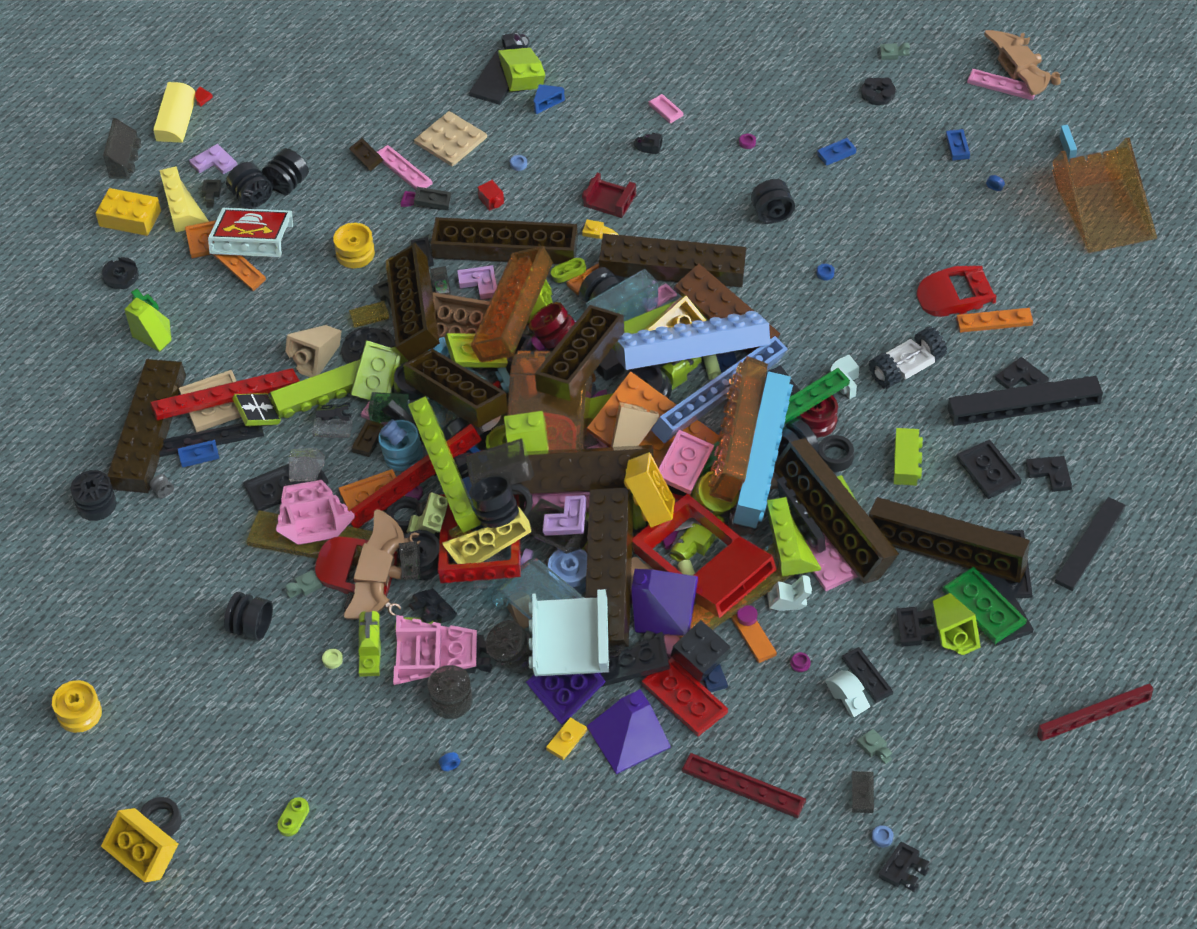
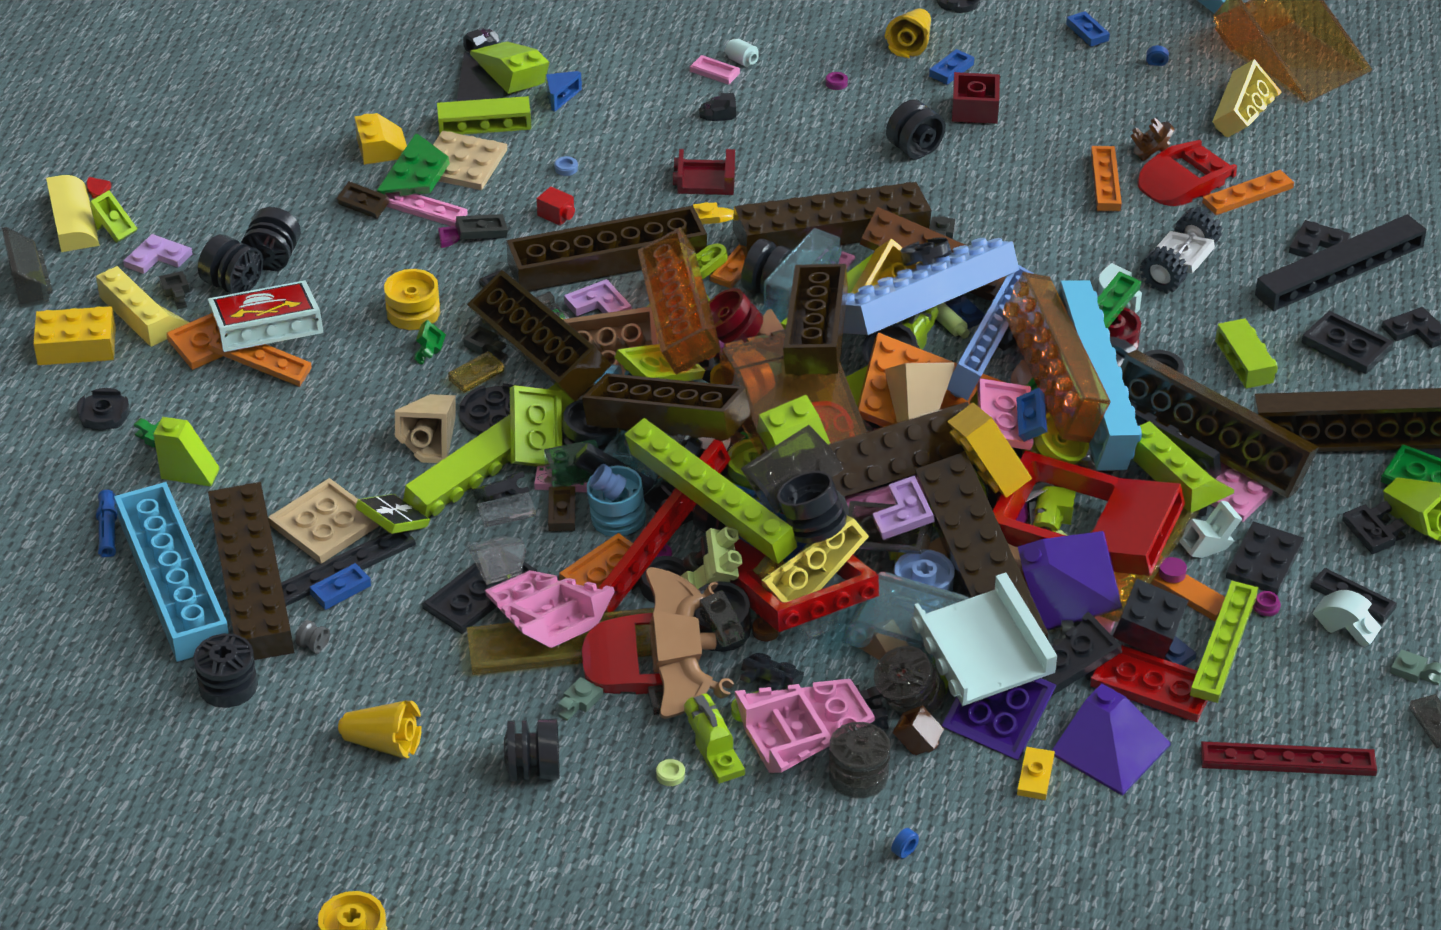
camera: 25 degrees left, 10 degrees down
(83, 355) = (106, 515): none -> blue pin
(98, 409) = (170, 568): none -> medium azure brick
(169, 569) = (384, 728): none -> yellow cone
(196, 124) = (110, 214): none -> lime slope
(222, 394) = (336, 506): red plate -> none
(352, 280) = (430, 339): none -> green plate
(402, 107) = (378, 138): none -> yellow slope
(411, 140) = (416, 169): none -> green wing
(482, 106) = (484, 115): none -> lime brick
(502, 683) = (918, 731): none -> reddish brown brick
(691, 99) = (741, 52): none -> light aqua brick
(697, 469) = (1031, 414): none -> blue plate
(702, 313) = (925, 252): none -> black plate
(746, 683) = (1224, 642): none -> lime plate
(750, 288) = (943, 225): none -> pearl dark grey plate
(820, 114) = (909, 33): none -> yellow cone
(822, 625) = (1265, 557): none -> black plate
(825, 272) = (1019, 191): blue tile -> none
(834, 184) = (975, 97): none -> dark red brick
(893, 279) = (1106, 178): none -> orange plate
(944, 256) = (1153, 140): none -> reddish brown plate
(1037, 239) = (1244, 98): none -> light yellow wedge

